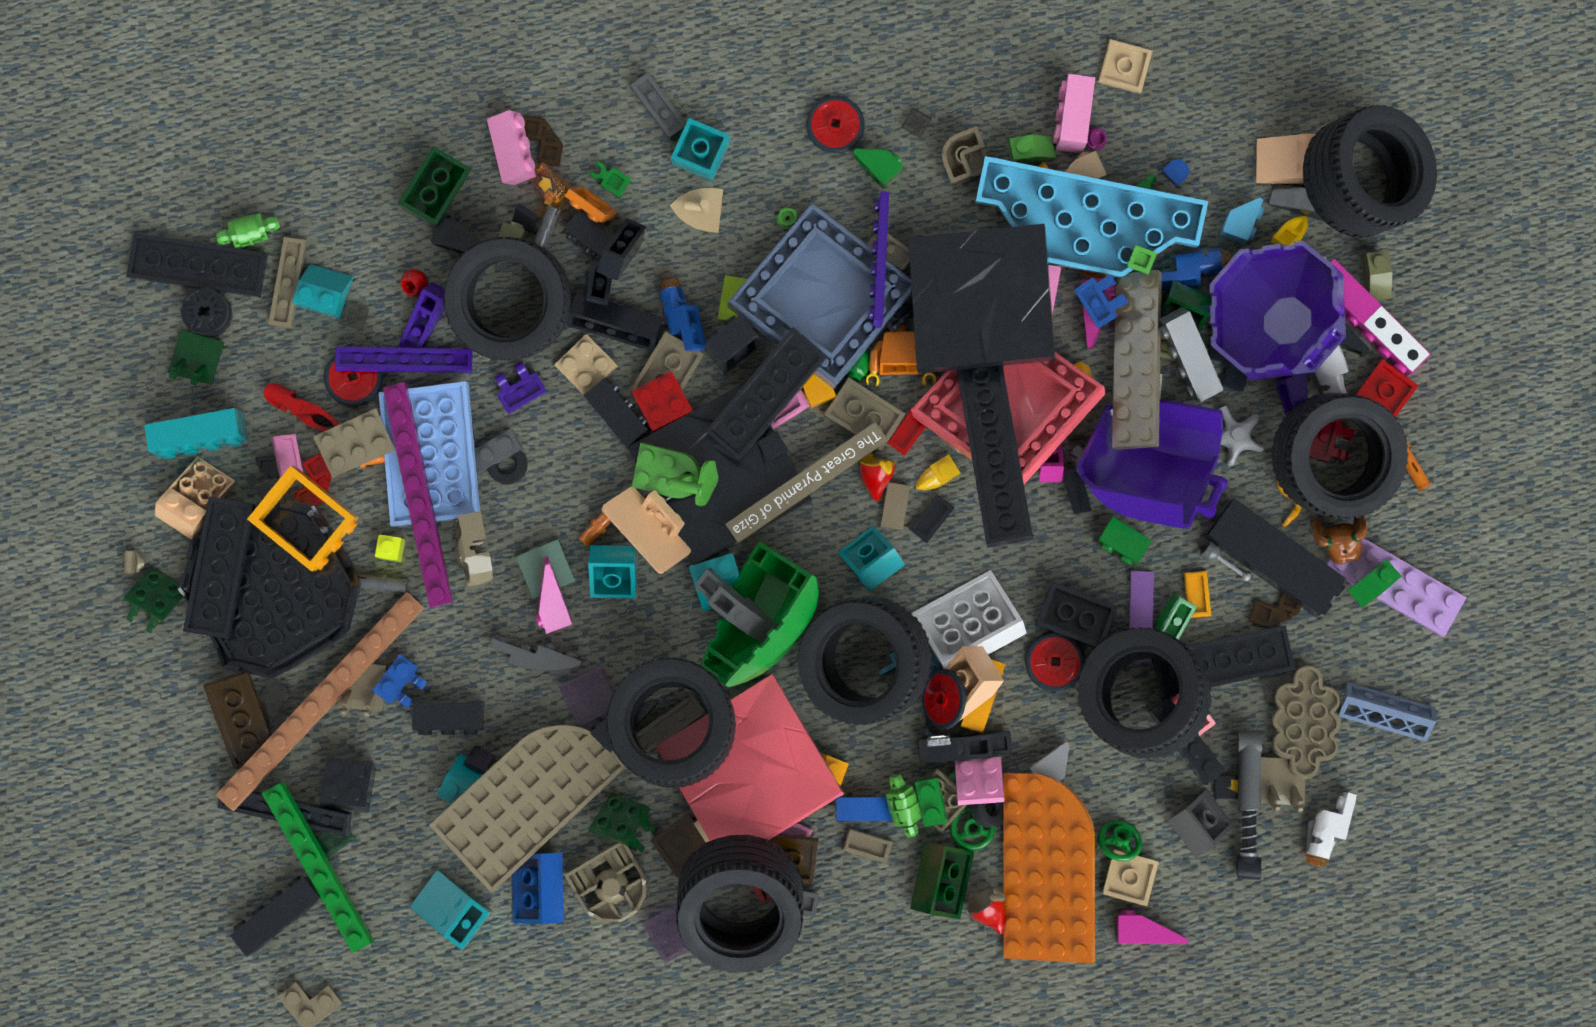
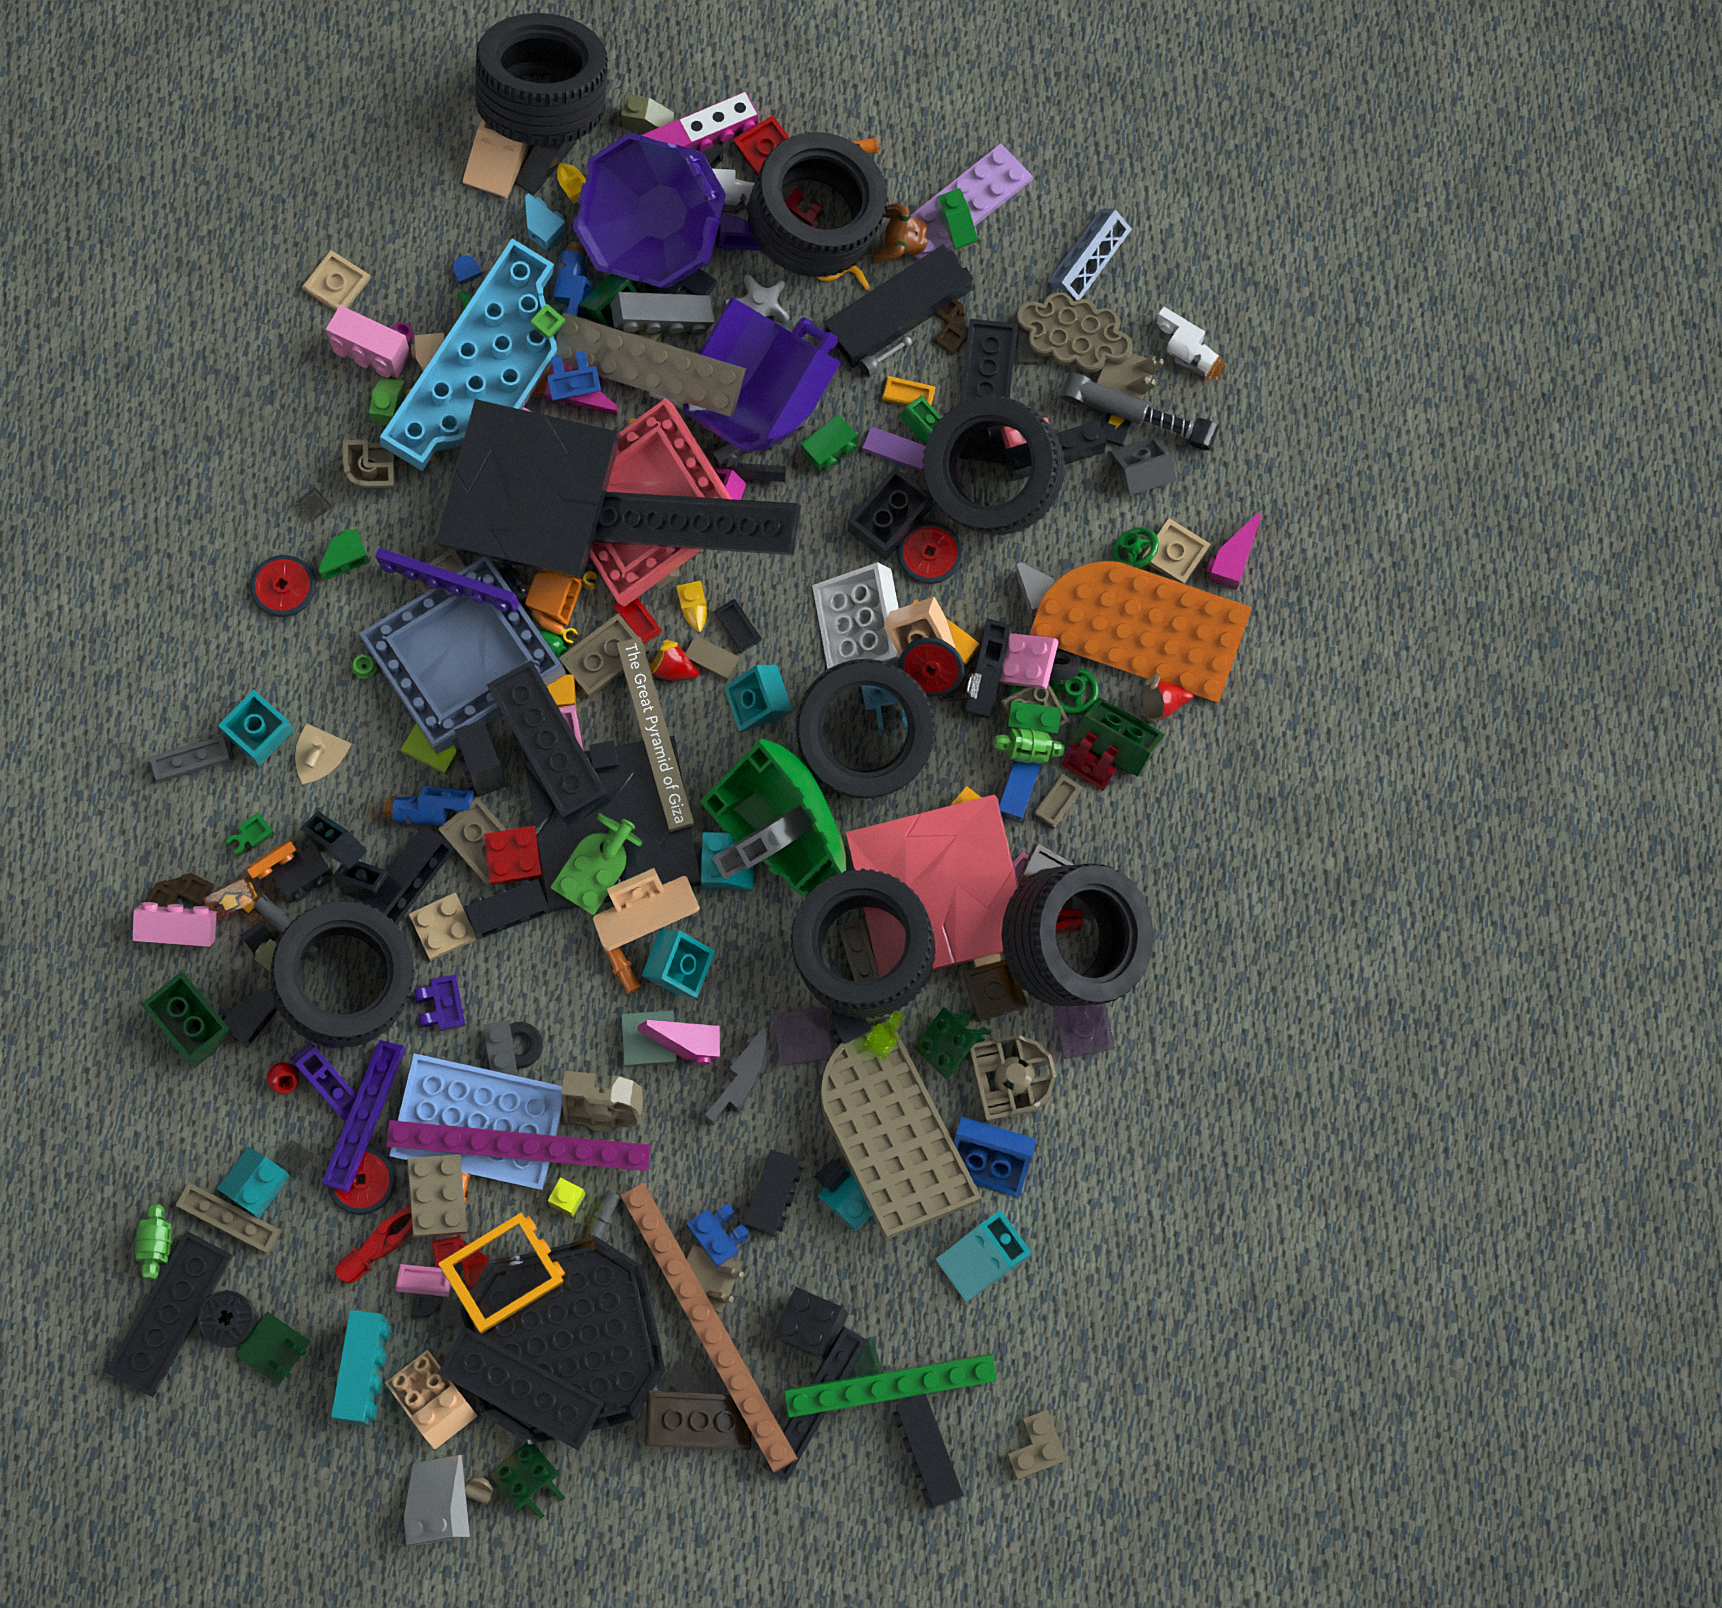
camera: 75 degrees left, 10 degrees down
(110, 532) = (436, 1502): none -> light grey slope
(604, 765) = (884, 1039): none -> clear neon green plate
(906, 862) = (1088, 766): none -> dark red plate

